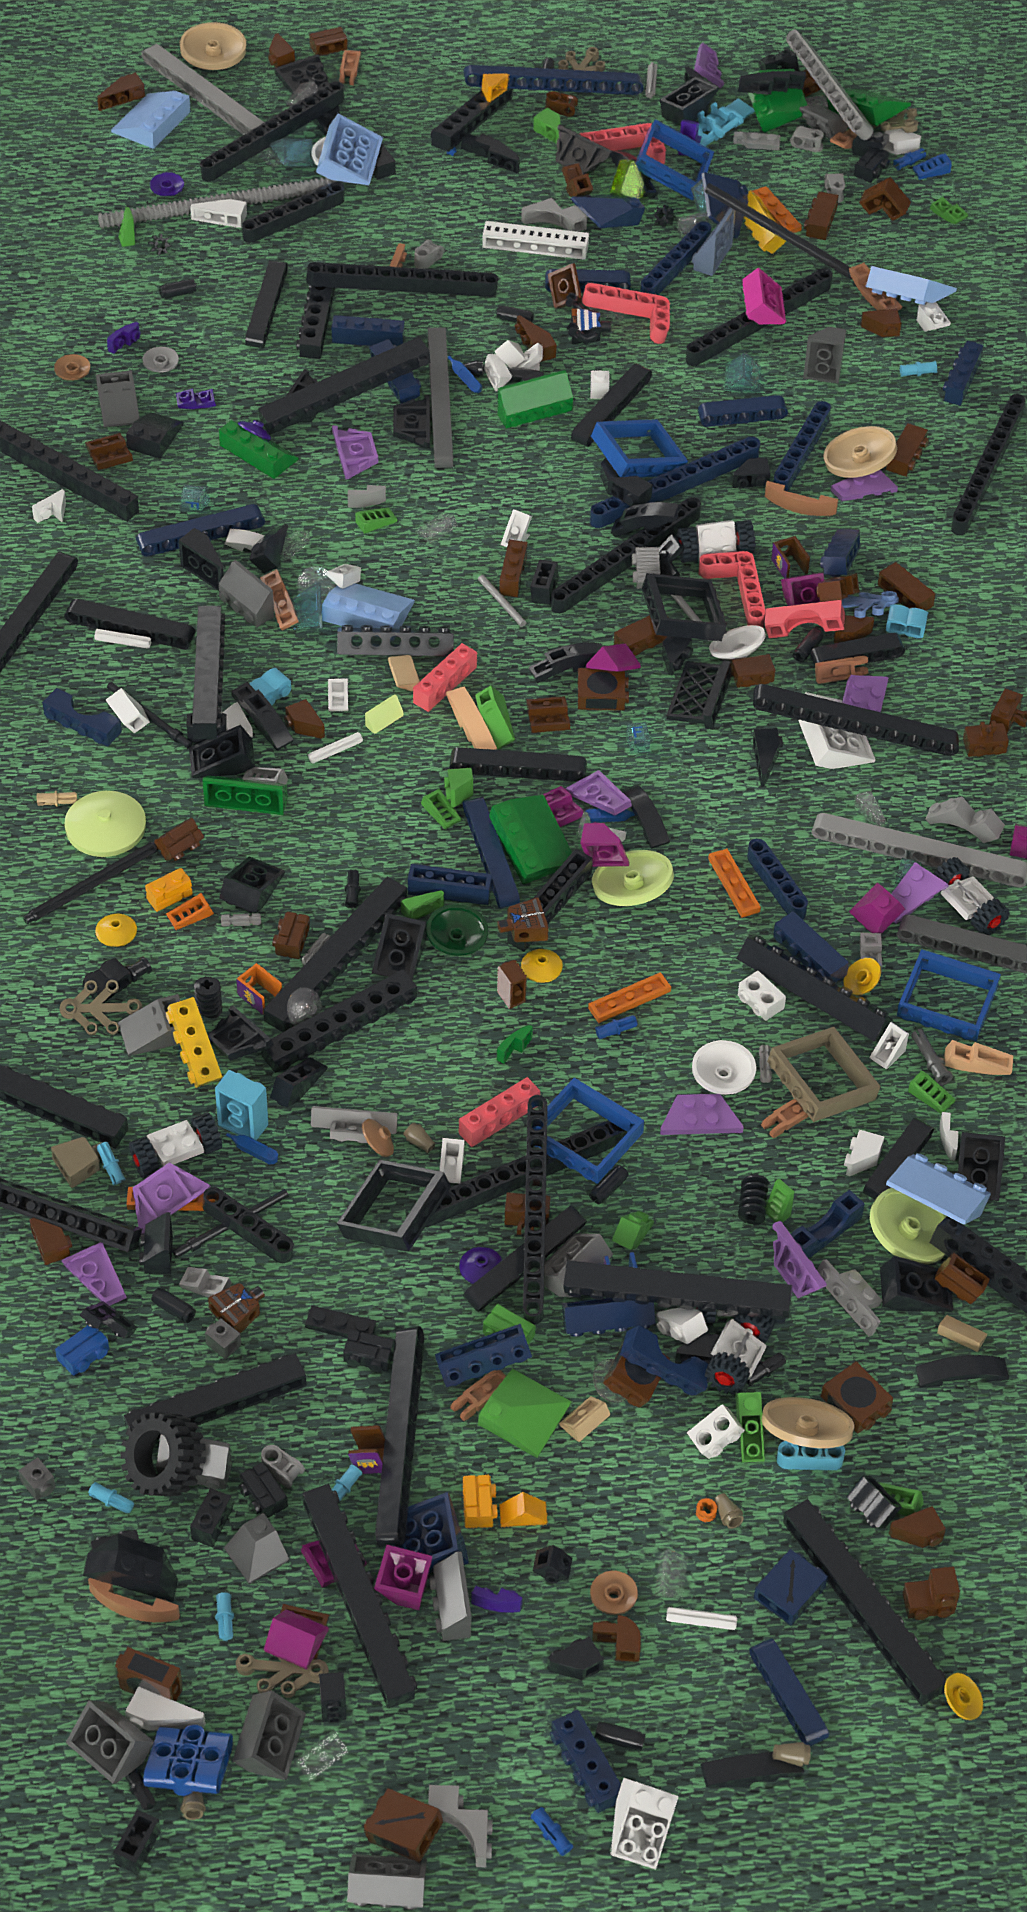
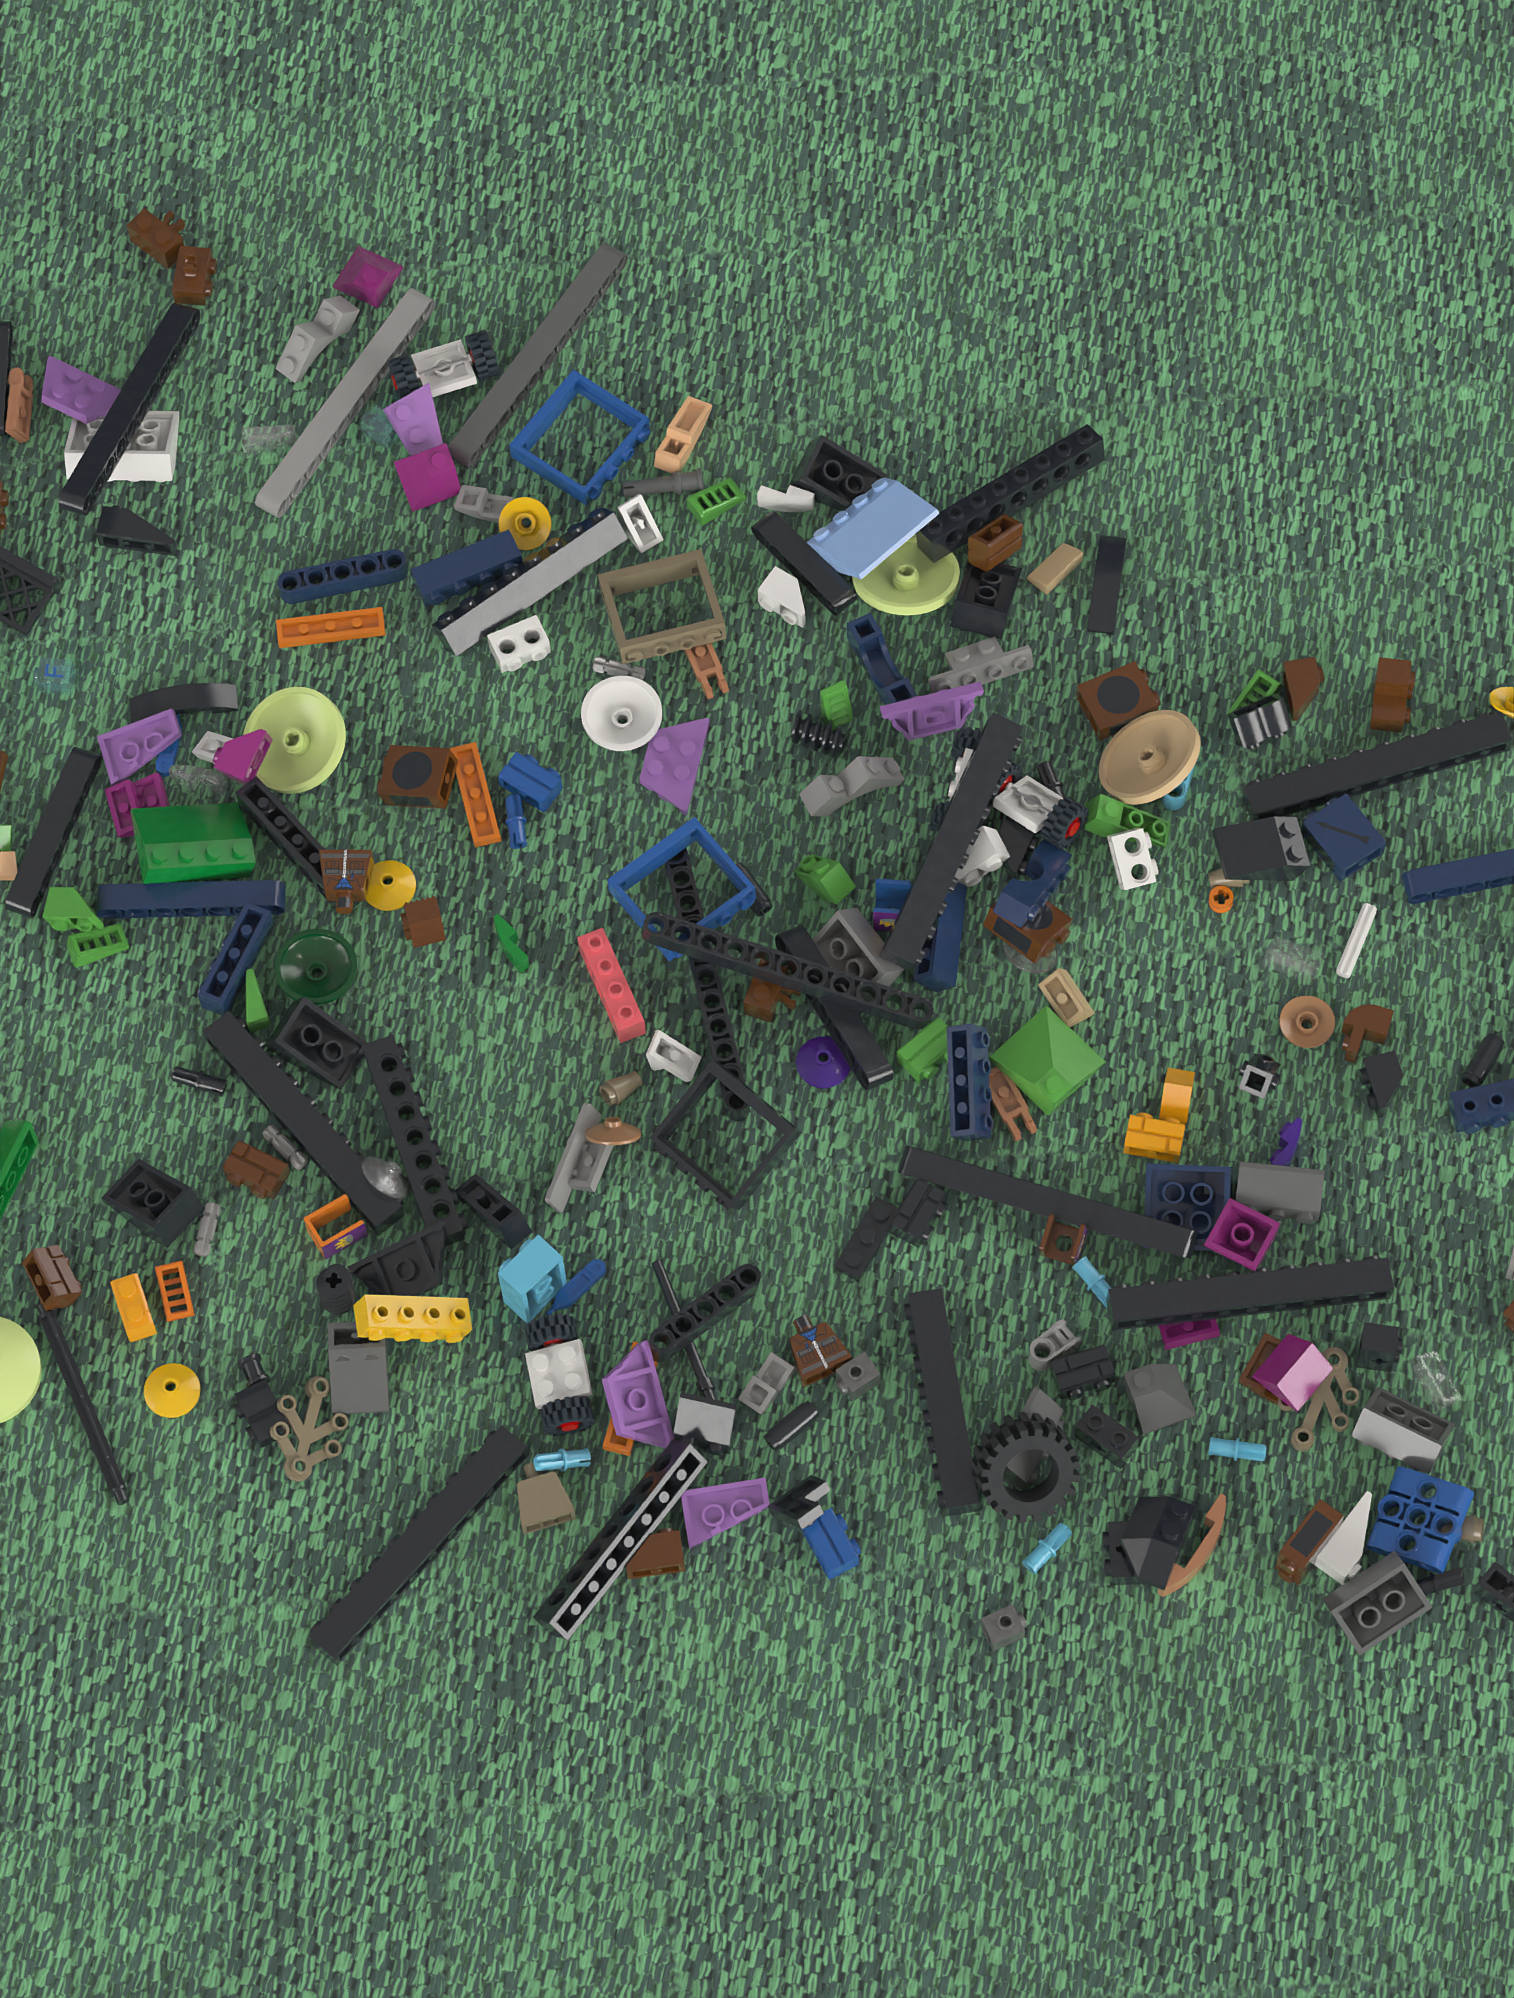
camera: 70 degrees left, 15 degrees up
(629, 956) = (417, 776): none -> reddish brown brick
(650, 1027) = (530, 781): none -> blue brick
(722, 1230) = (861, 776): none -> light grey arch
(753, 1521) = (1262, 849): none -> black slope

